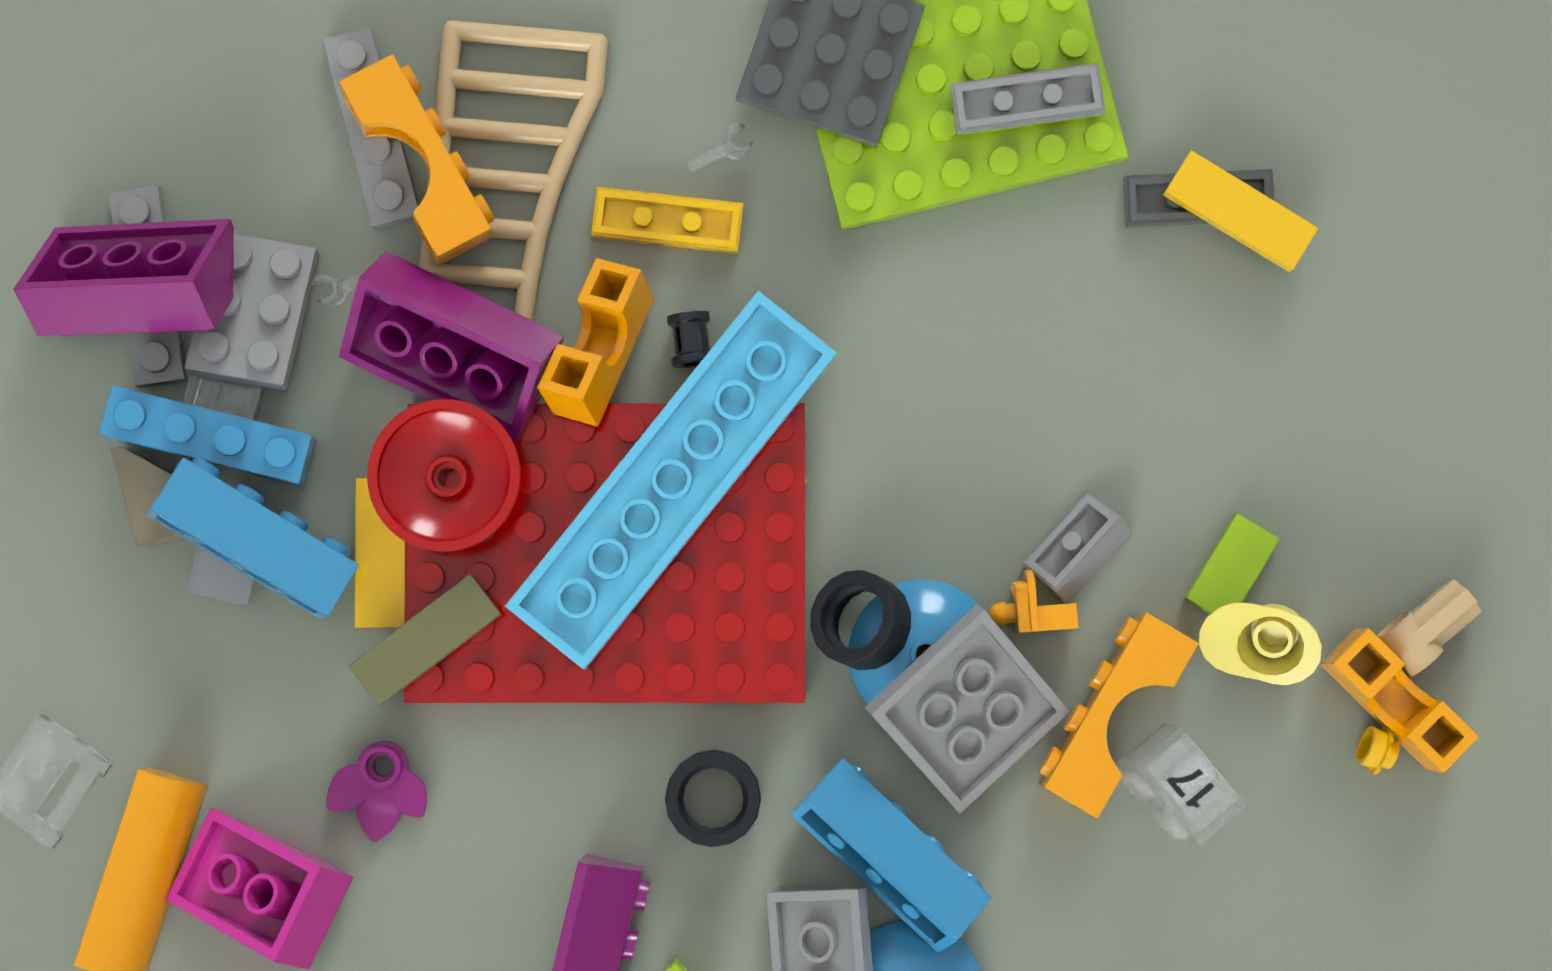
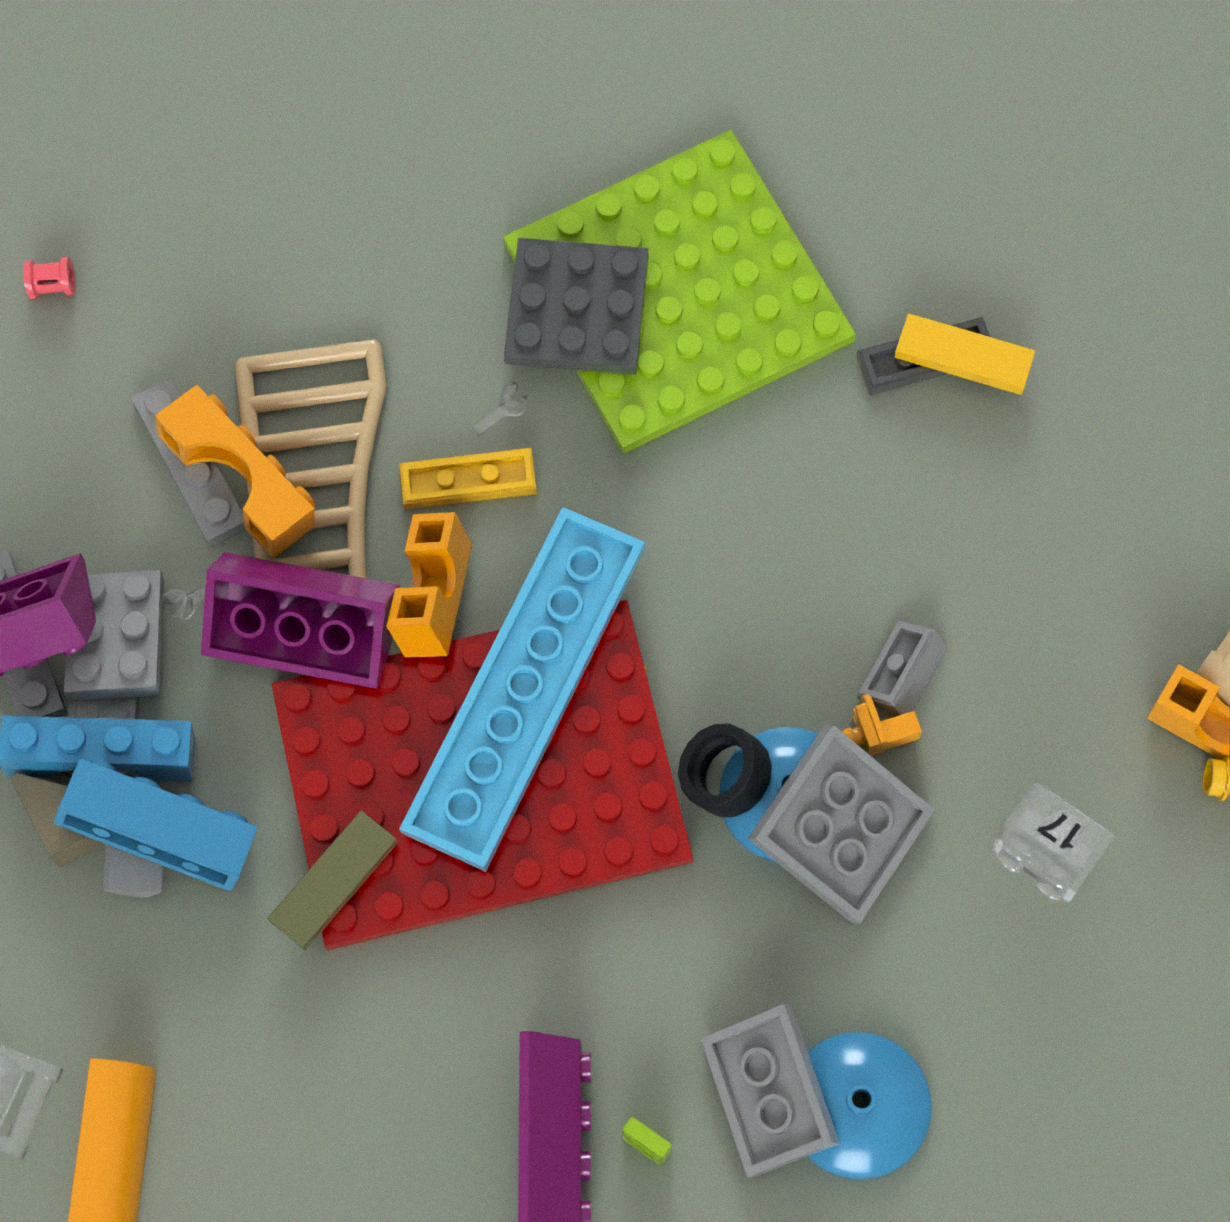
camera: 10 degrees left, 15 degrees down
(259, 890) = (226, 1148): dark pink slope -> none
(376, 796) = (317, 1040): magenta plate -> none
(380, 568) = (275, 813): yellow tile -> none
(408, 470) = (315, 696): red dish -> none
(689, 337) = (510, 567): black bush -> none
(704, 835) = (615, 931): black tyre -> none
(892, 855) = (806, 973): dark azure brick -> none
(1027, 99) = (755, 304): light grey tile -> none
(1083, 766) = (963, 855): light orange arch -> none
(1232, 565) = (1044, 654): lime tile -> none
(1260, 642) = (1087, 705): light yellow piece -> none

